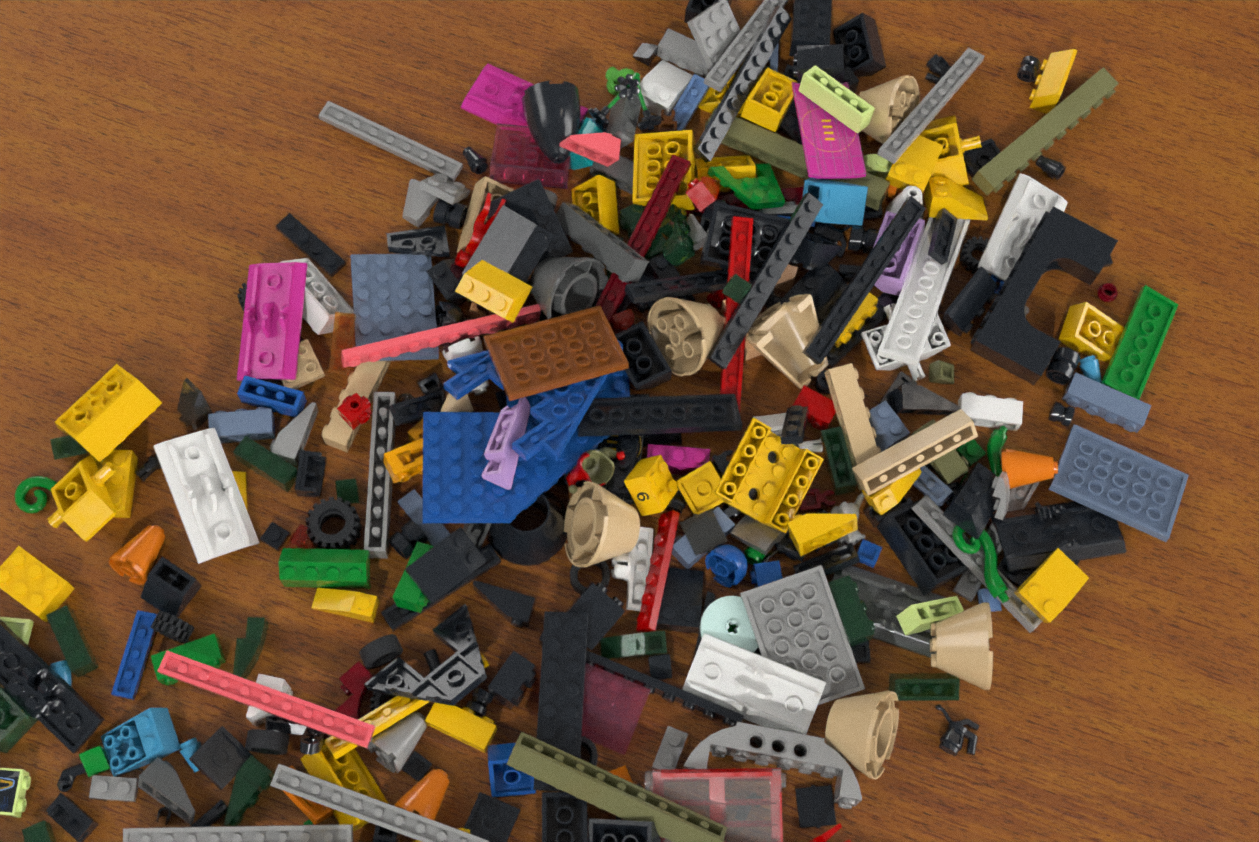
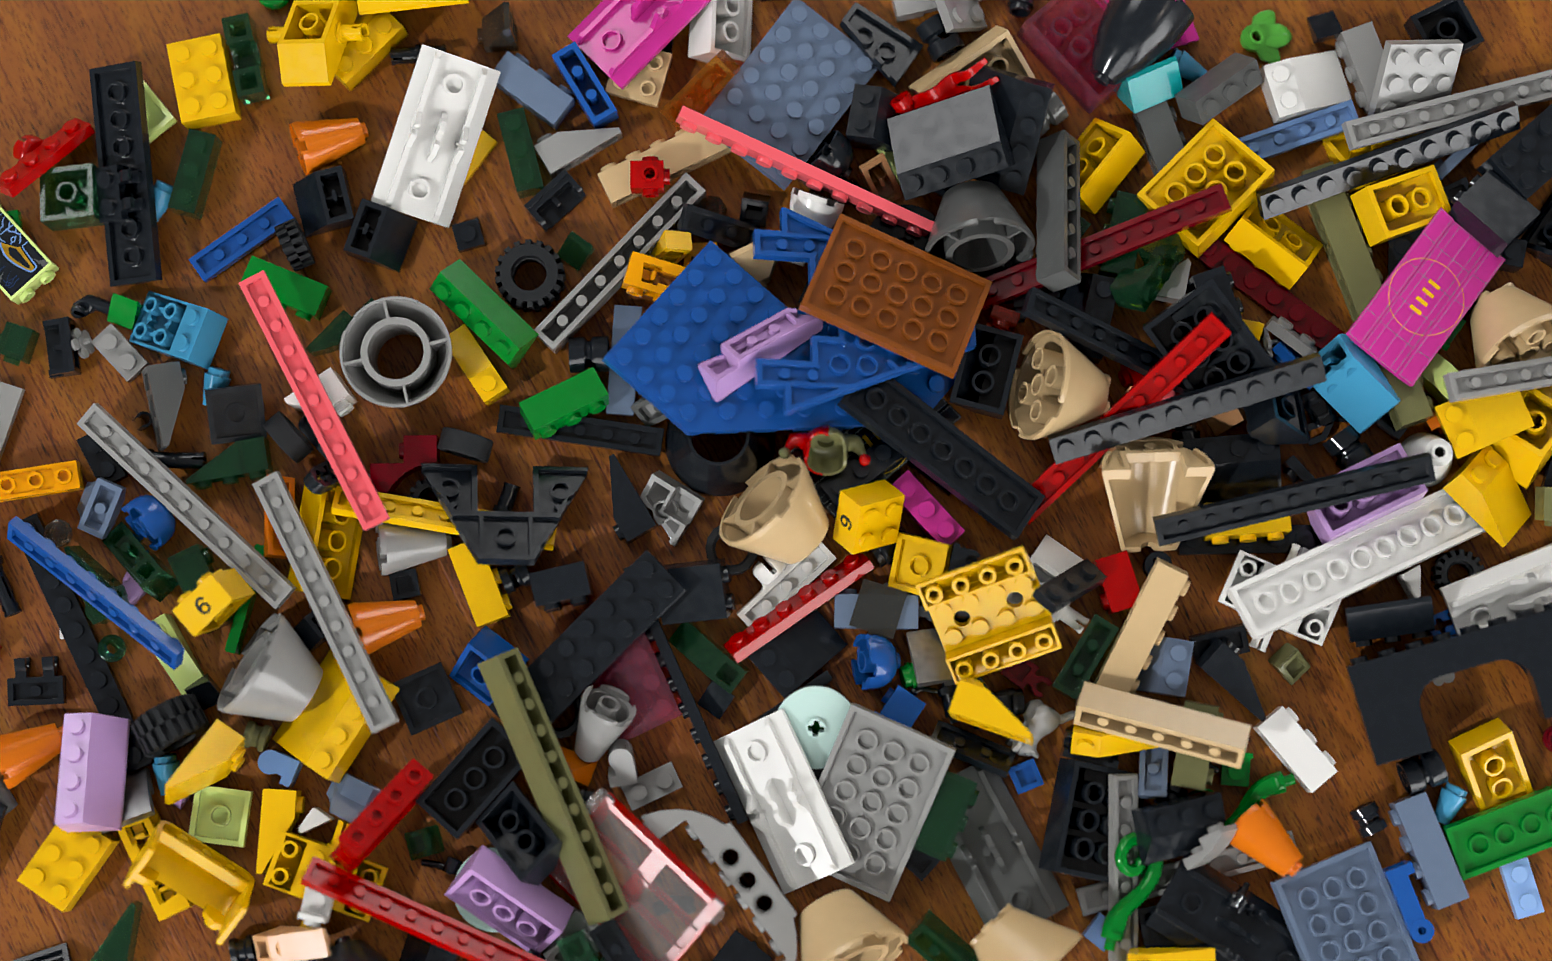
camera: 50 degrees right, 15 degrees up
(47, 548) = (246, 54): none -> clear green arch
(82, 802) = (82, 342): none -> light grey plant
(221, 579) = (380, 235): none -> black slope
(278, 610) = (372, 329): none -> light grey cone
(298, 537) = (483, 259): clear red plate -> none
(403, 434) = (672, 246): none -> yellow slope
(445, 565) = (595, 416): black slope -> none
(494, 290) = (895, 172): yellow slope -> none
(533, 581) = (671, 504): none -> light grey slope
(598, 147) = (1157, 104): coral slope -> none
(608, 736) = (601, 720): none -> light grey cone
(627, 87) = (1243, 67): black plant -> none
(643, 750) = (622, 764): none -> light grey leg
(667, 123) = (1259, 138): reddish brown plate -> none
(703, 191) = (1216, 254): red slope -> none
(736, 288) = (1144, 392): clear green slope -> none
(754, 192) = (1278, 298): green wing -> none
(836, 99) = (1463, 272): yellowish green brick -> none
(921, 615) = (1022, 893): yellowish green slope -> none
(942, 236) = (1430, 524): black plate -> none
(959, 277) = (1411, 582): none -> white slope
(1124, 437) = (1417, 926): none -> blue leg
(1168, 381) = (1521, 888): none -> light blue plate

